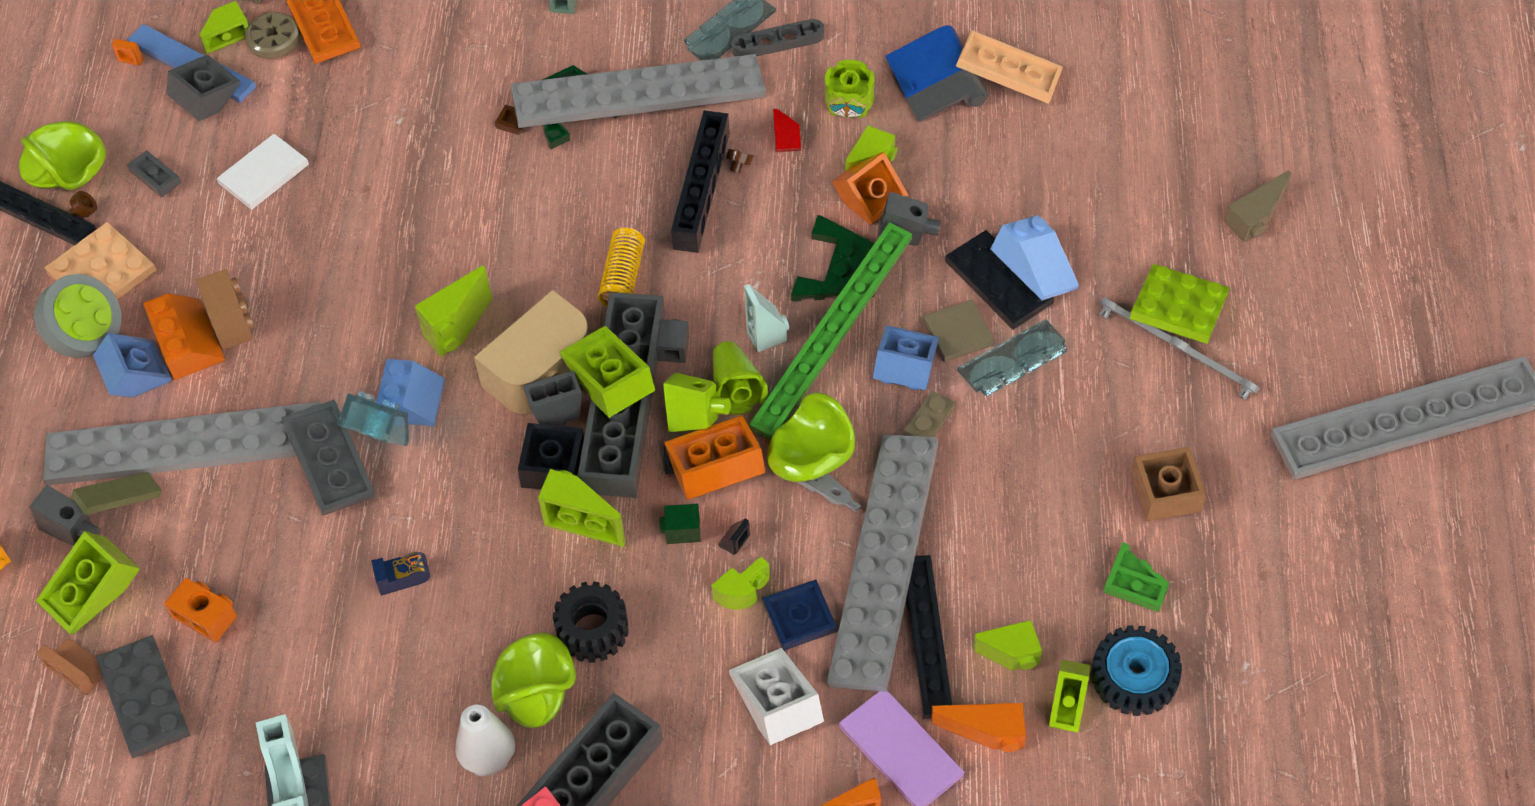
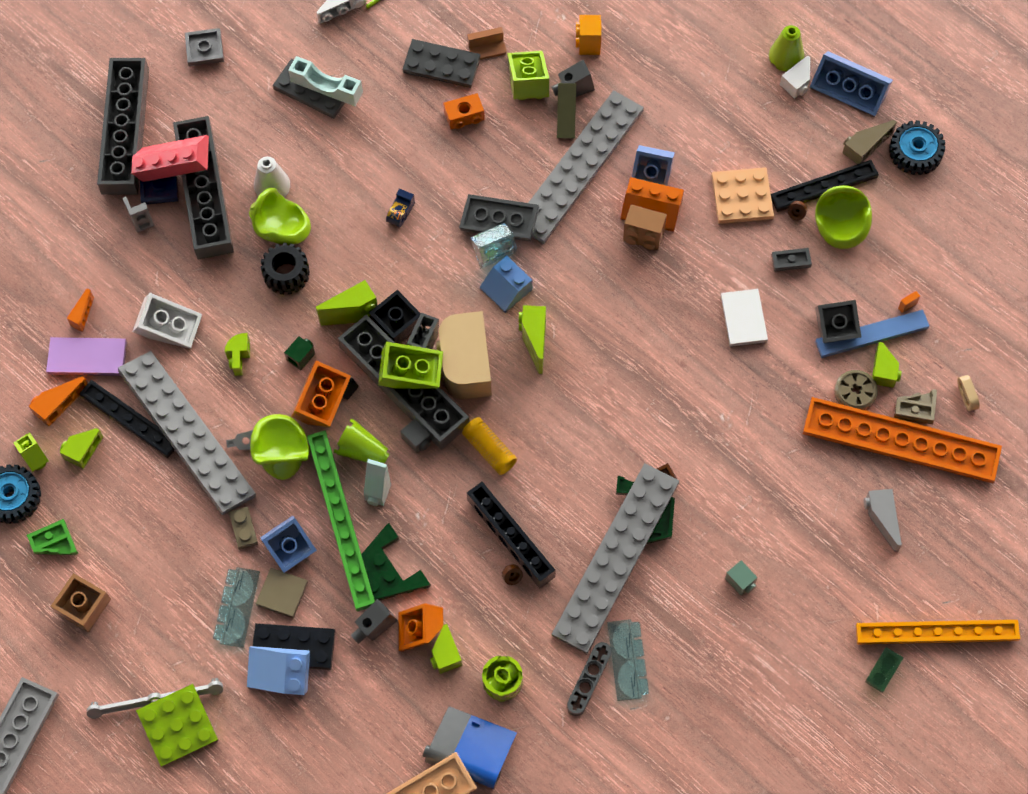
camera: 130 degrees right, 10 degrees up
(76, 315) = (701, 153): wheel -> none
(692, 403) = (357, 404): lime torso -> none
(735, 536) = (270, 373): black slope -> none
(786, 132) = (508, 619): red slope -> none
(799, 615) = (199, 370): dark blue tile -> none

